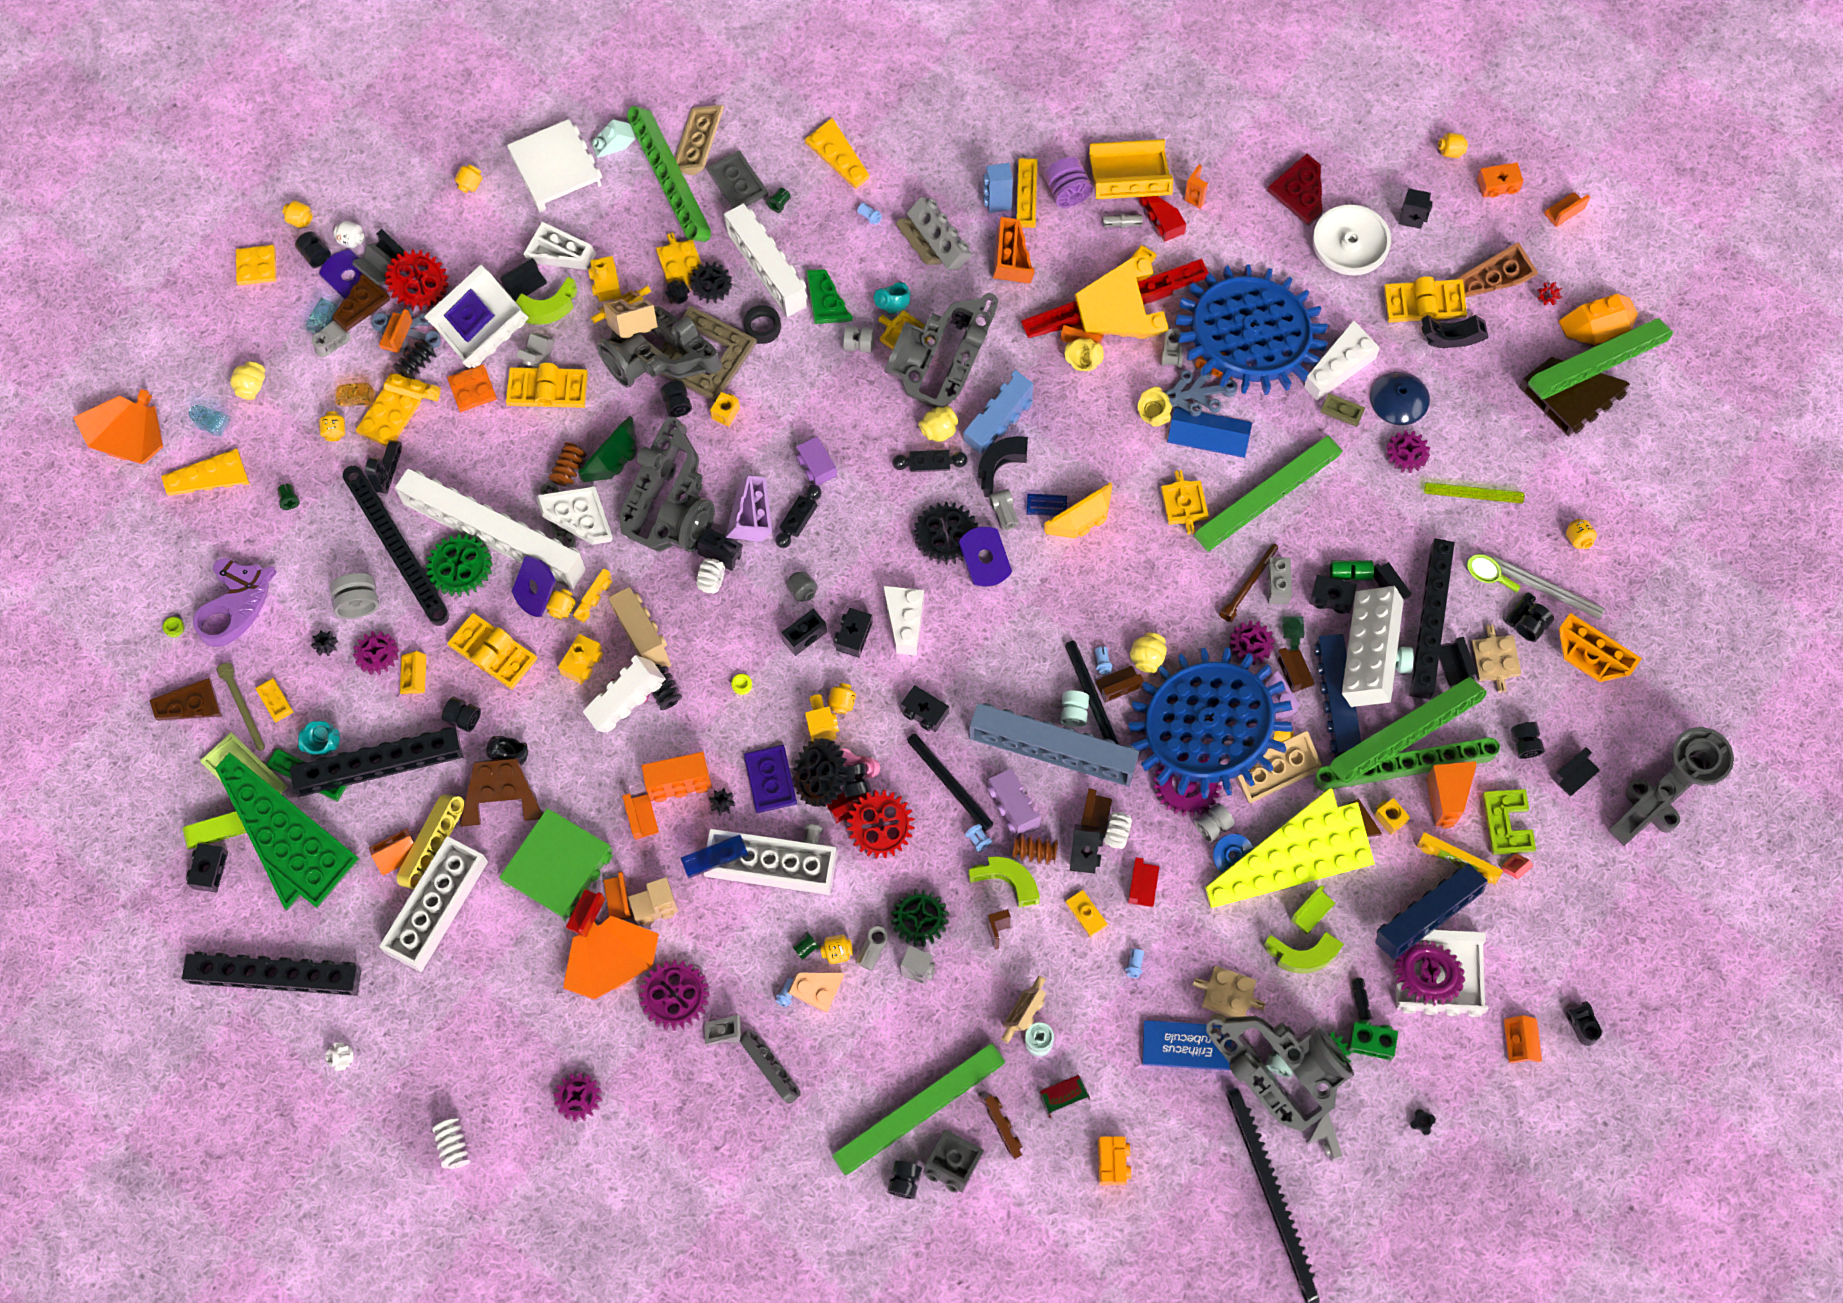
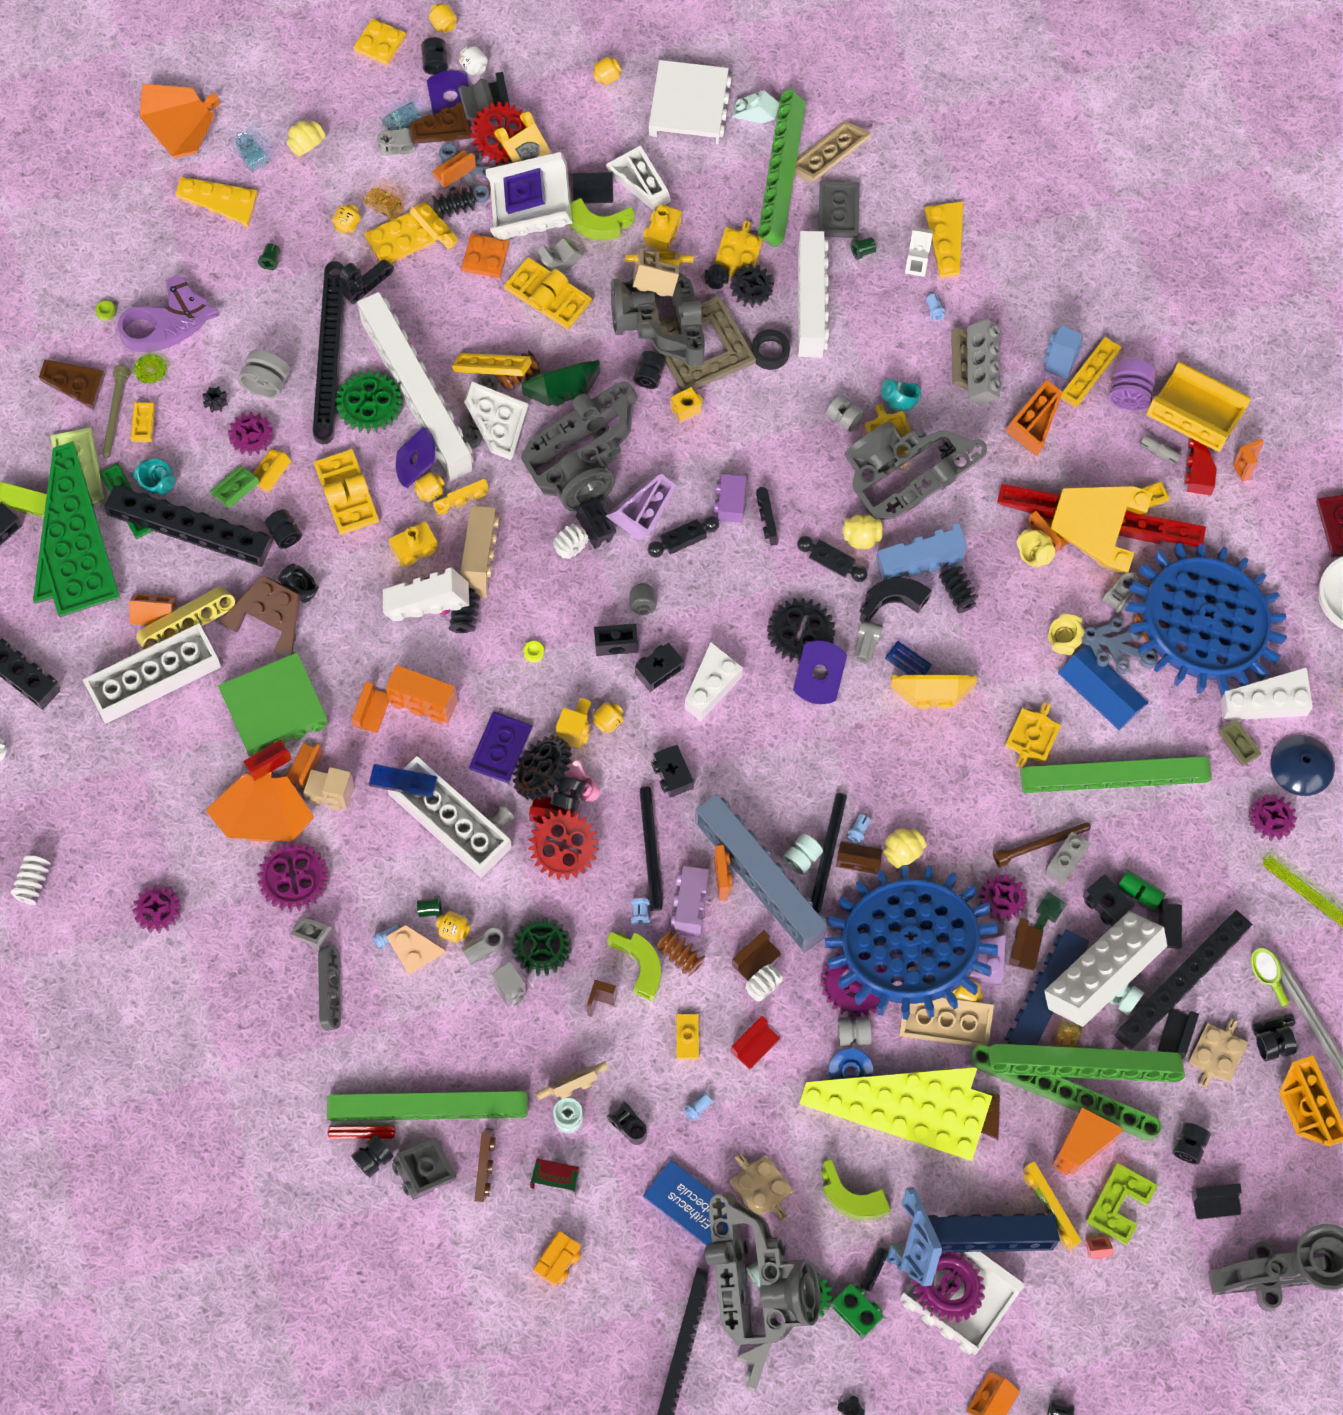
camera: 30 degrees right, 0 degrees up
(245, 645) = (151, 361): none -> clear neon green gear
(393, 705) = (234, 486): none -> bright green plate
(443, 277) = (526, 143): none -> yellow flag
(543, 472) = (491, 364): none -> yellow plate
(718, 796) = (445, 745): black gear -> none
(824, 299) = (841, 360): green wing -> none
(826, 178) = (918, 251): none -> white brick
(854, 457) = (767, 515): none -> black hinge
(879, 1166) = (361, 1131): none -> red axle
(1022, 764) = (723, 879): none -> orange plate
(1046, 423) = (958, 590): none -> black piece
(1086, 836) = (713, 985): black brick -> none
(1089, 1013) = (625, 1121): none -> black piece
(1313, 910) = (887, 1164): lime panel -> none
(1379, 718) = (1067, 1034): none -> clear yellow plate
(1389, 824) = (1017, 1138): yellow brick -> none
(1396, 955) = (922, 1245): none -> medium blue wing

